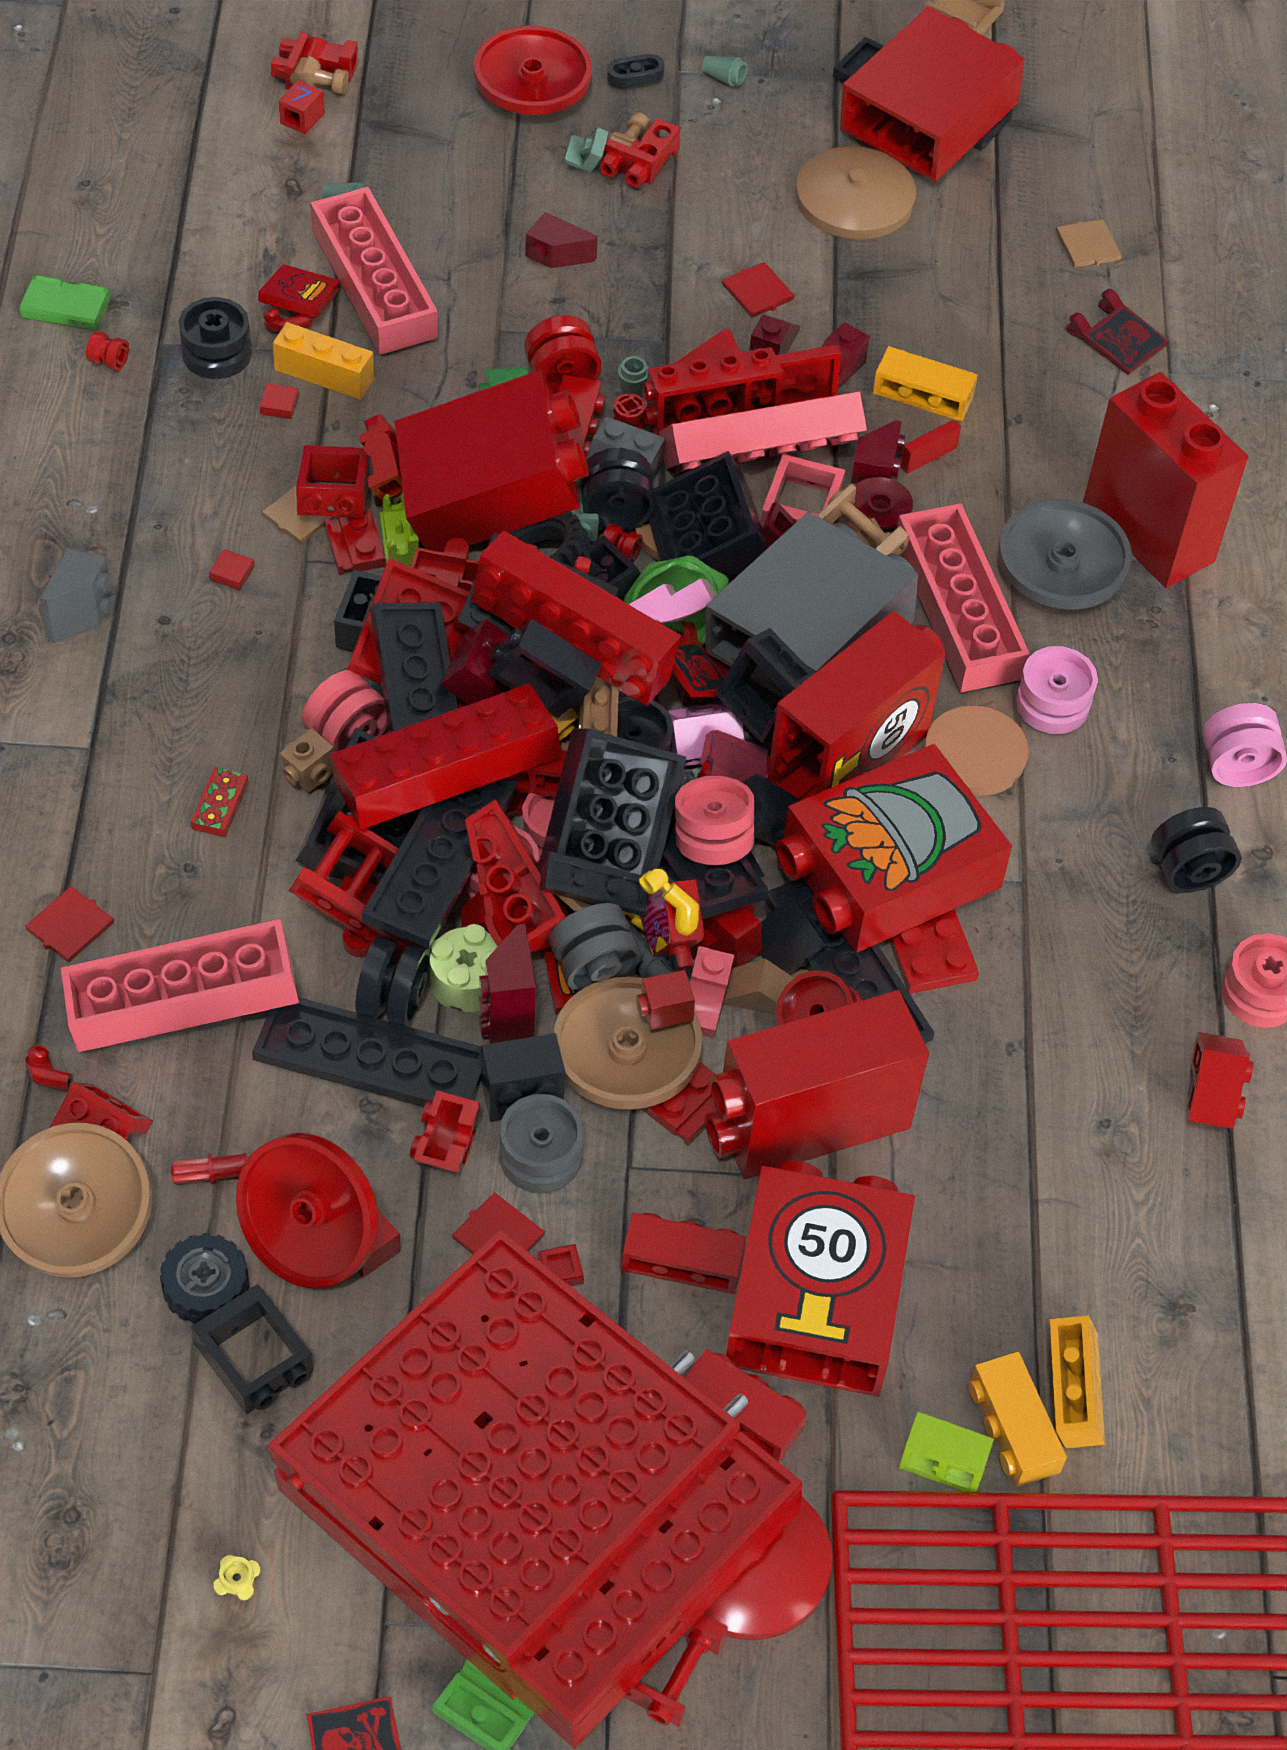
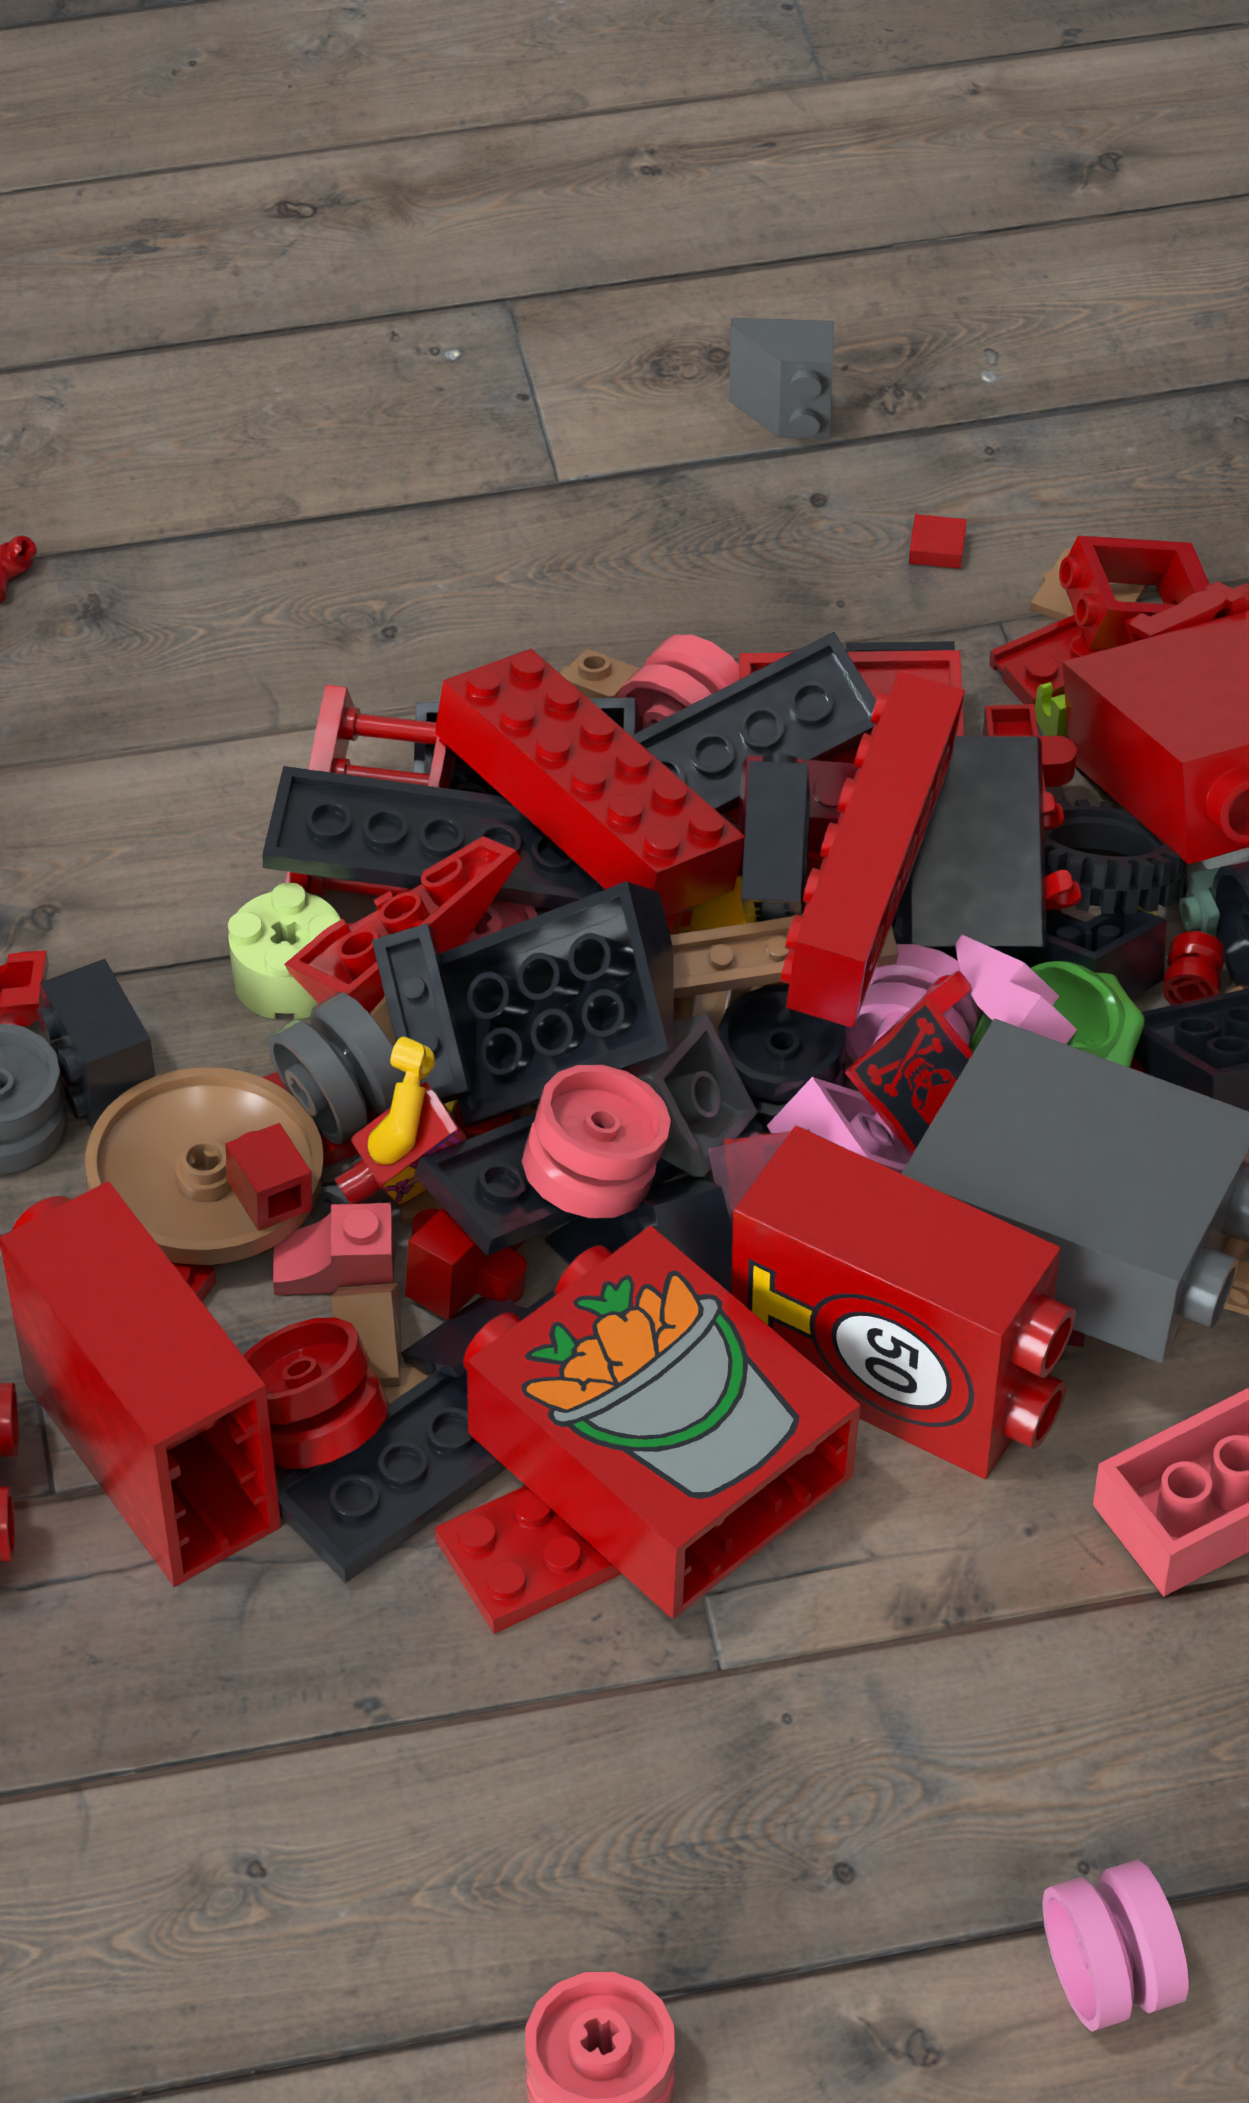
camera: 80 degrees right, 5 degrees down
(69, 924) = (252, 535): red piece -> none
(178, 985) = (151, 644): coral brick -> none
(219, 802) = (507, 630): tile -> none
(367, 1053) = (121, 872): black plate -> none
(392, 980) = (215, 859): black wheel -> none
(508, 990) = (231, 981): dark red slope -> none
(778, 663) = (894, 1113): black window -> none
(981, 747) = (973, 1548): nougat tile -> none
(1056, 690) = (1133, 1630): bright pink wheel -> none
(1195, 849) = (838, 1893): black wheel -> none
(1219, 1071) = (356, 1991): red brick -> none

